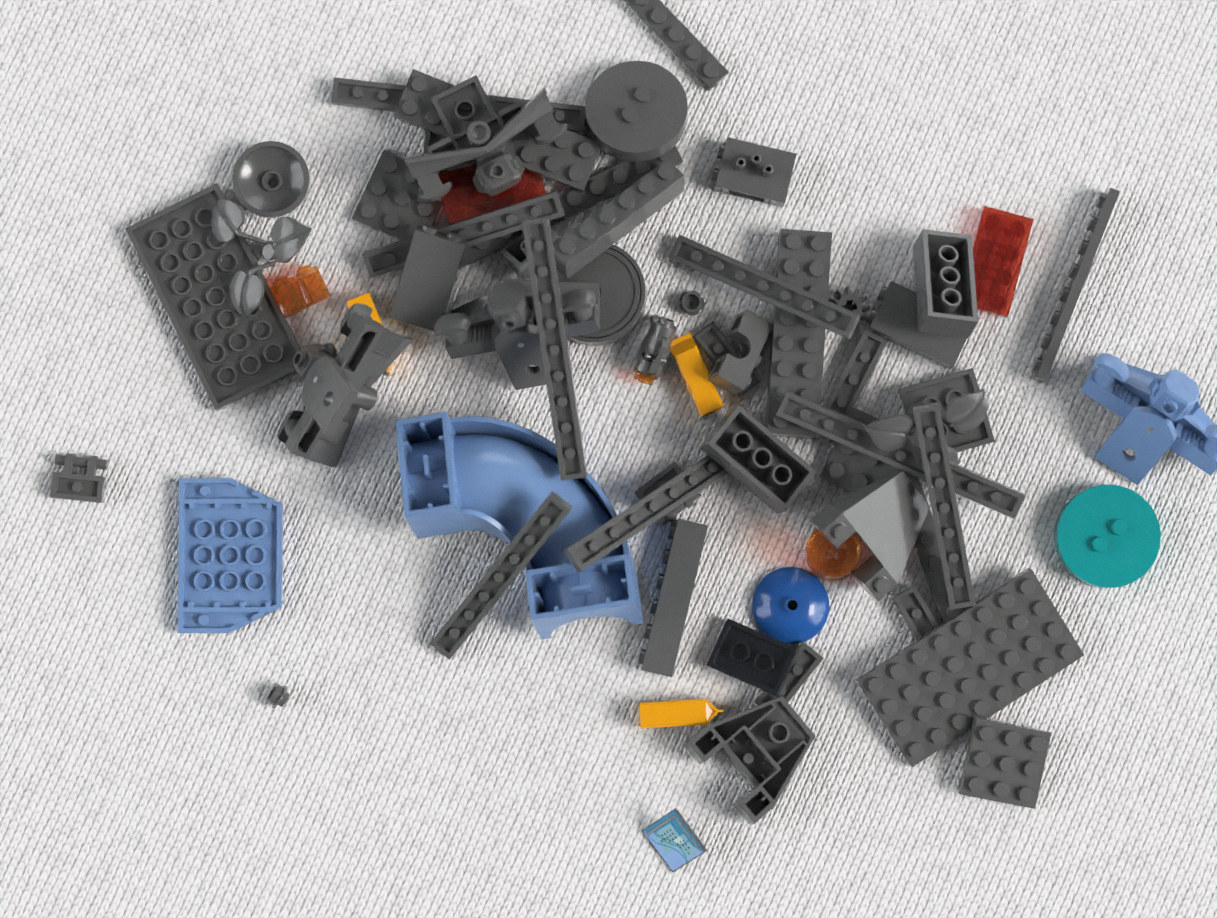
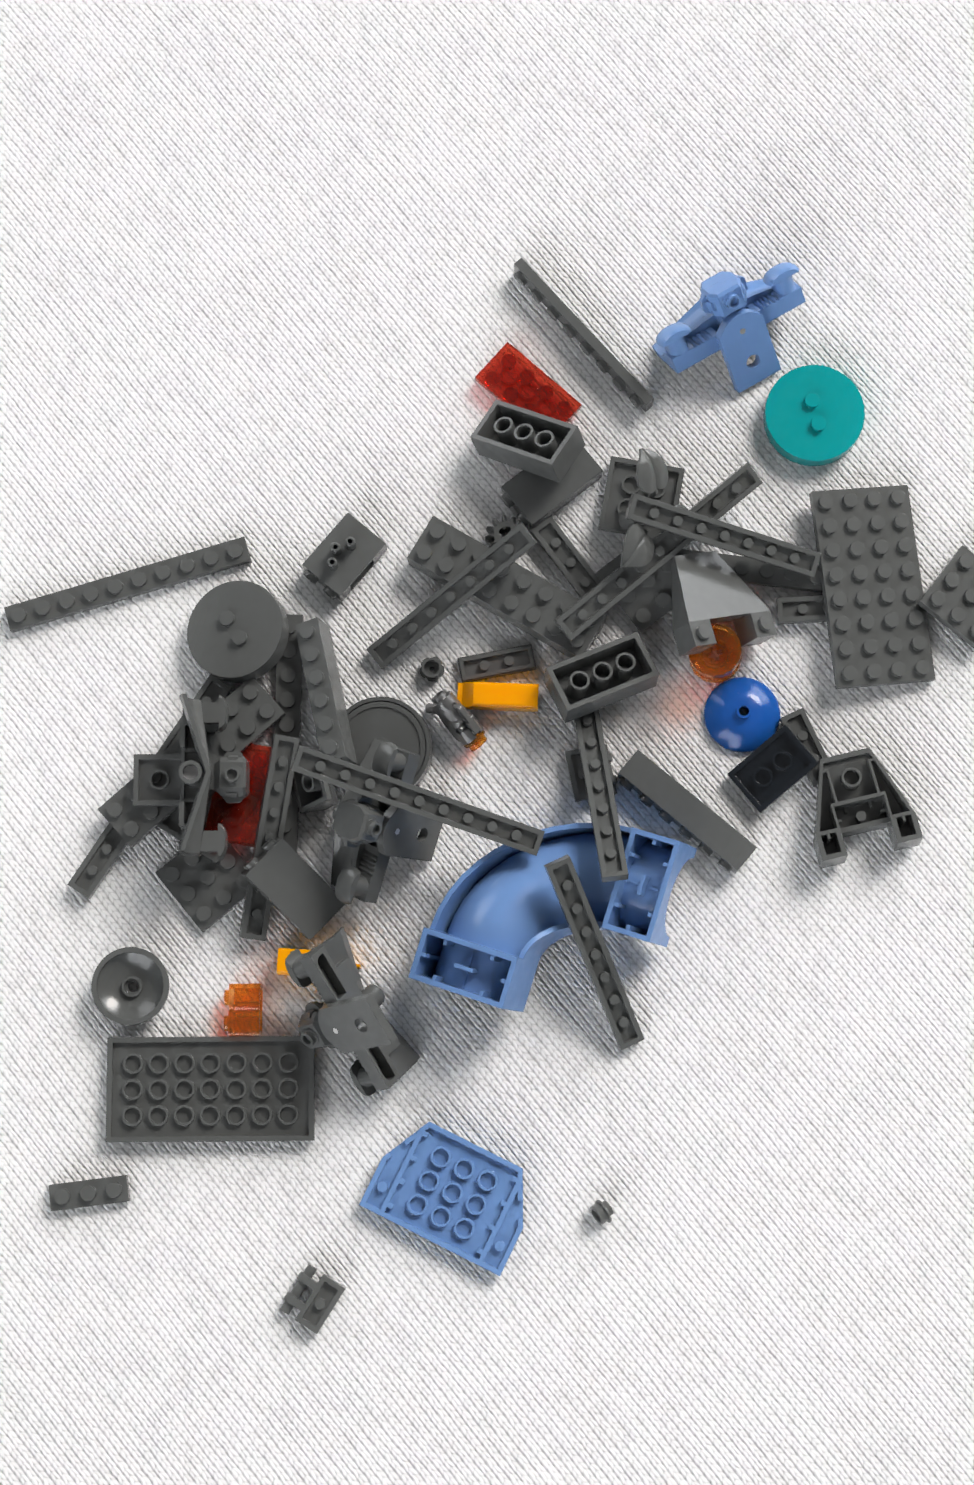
camera: 55 degrees left, 5 degrees down
(75, 237) = (89, 1193): none -> dark grey plate
(287, 238) = (192, 993): dark grey plant -> none
(674, 840) = (902, 916): piece -> none
(676, 713) = (789, 860): light orange piece -> none
(751, 335) = (488, 630): dark grey arch -> none

